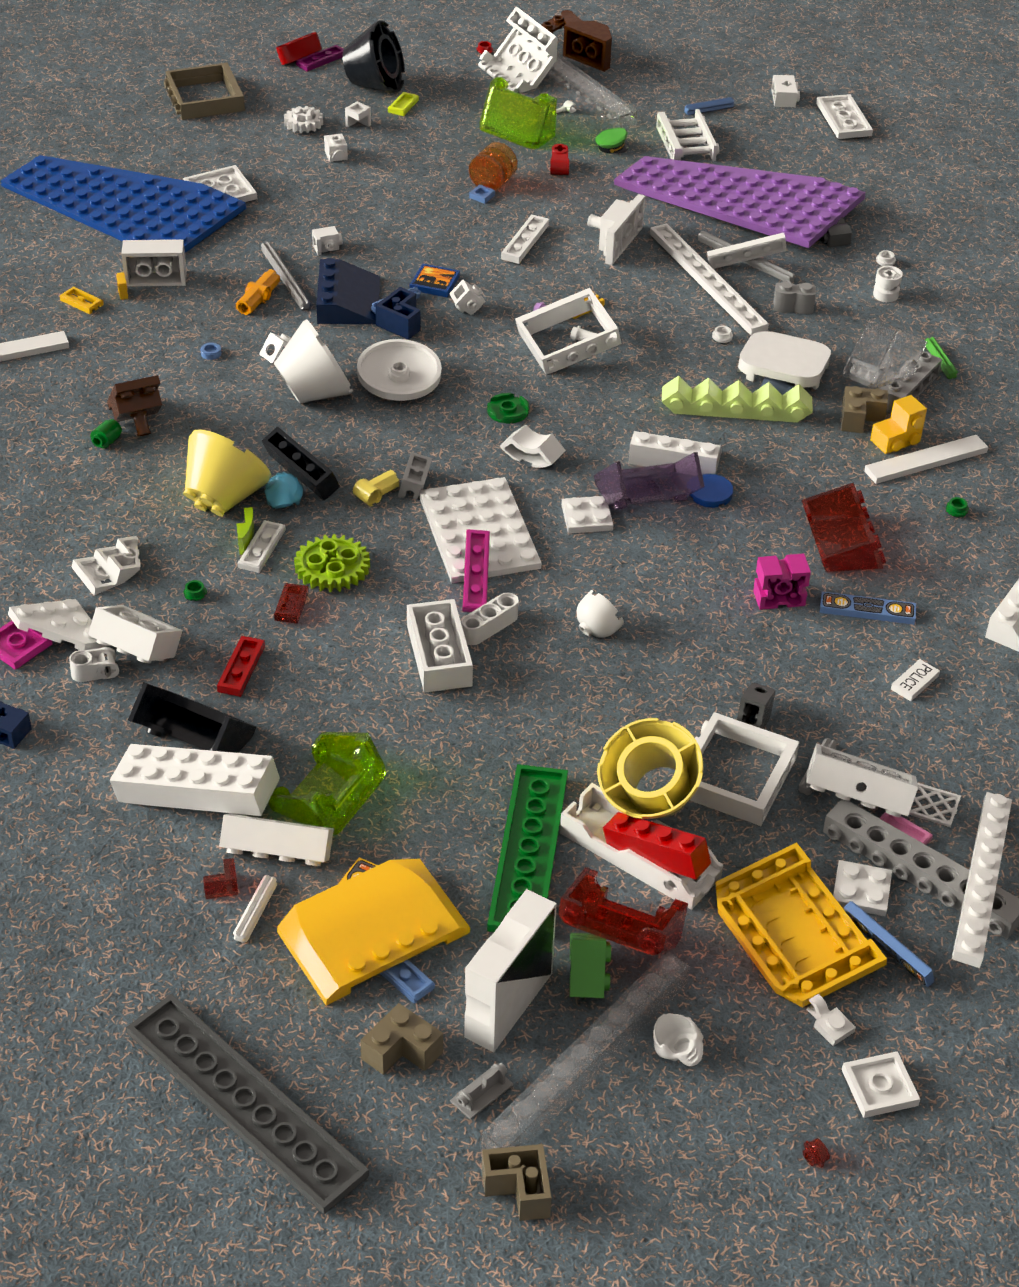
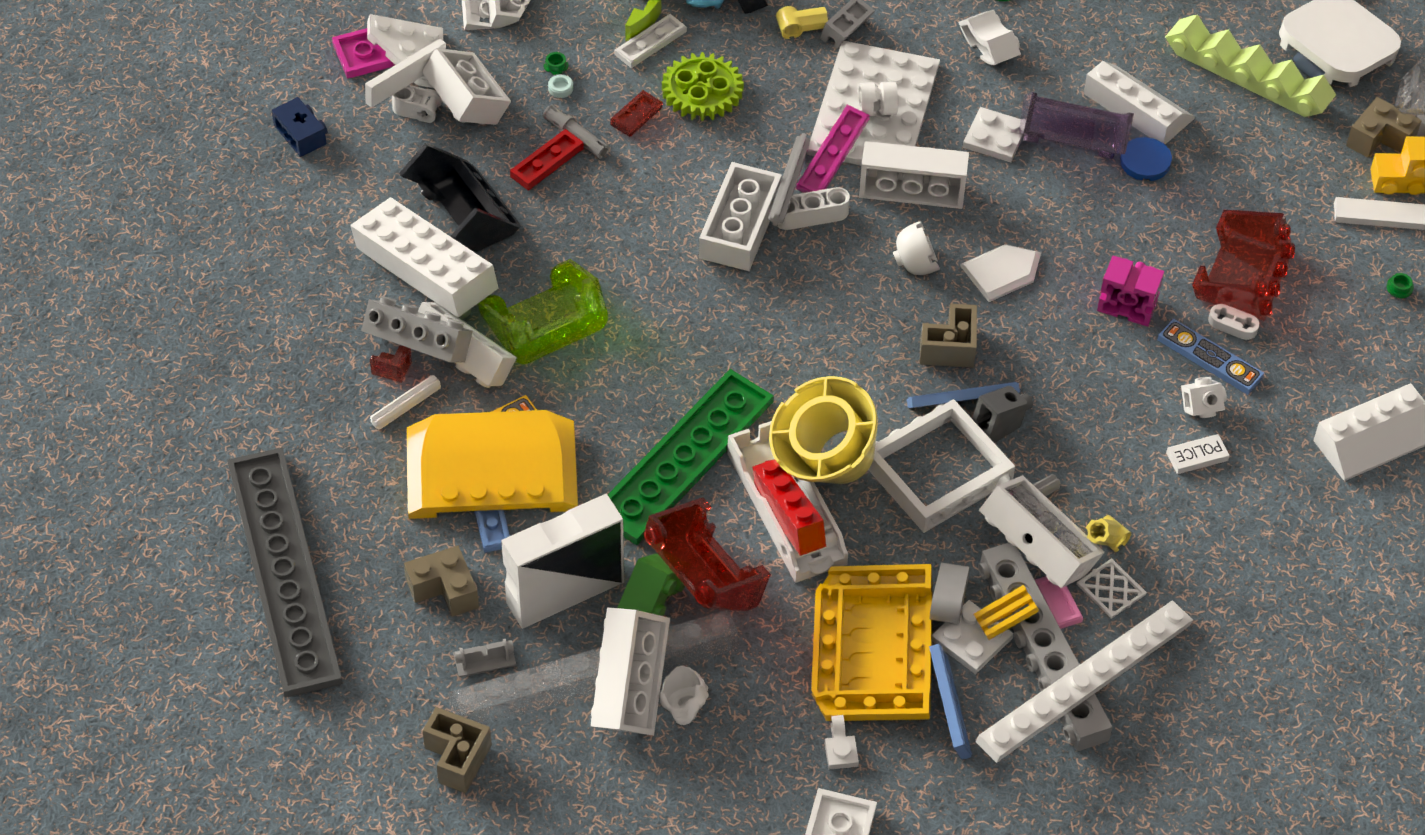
camera: 30 degrees right, 10 degrees up
(73, 642) = (399, 75): none -> white tile
(210, 607) = (560, 86): none -> light aqua tile
(233, 840) = (417, 330): none -> light grey brick
(234, 633) = (568, 122): none -> light grey pin
(462, 603) = (789, 179): none -> light grey axle
(488, 516) = (878, 98): none -> white wheel
(554, 562) = (913, 174): none -> white brick
(628, 1037) = (630, 671): none -> white slope
(667, 608) = (1002, 270): none -> white tile
(676, 670) = (951, 343): none -> dark tan brick
(716, 706) = (957, 395): none -> medium blue tile
(827, 859) = (949, 593): none -> light grey beam
(864, 577) = (1233, 321): none -> white beam
(891, 636) = (1203, 397): none -> white brick
(893, 835) = (1003, 608): none -> yellow tile
(904, 761) = (1108, 532): none -> light yellow piece

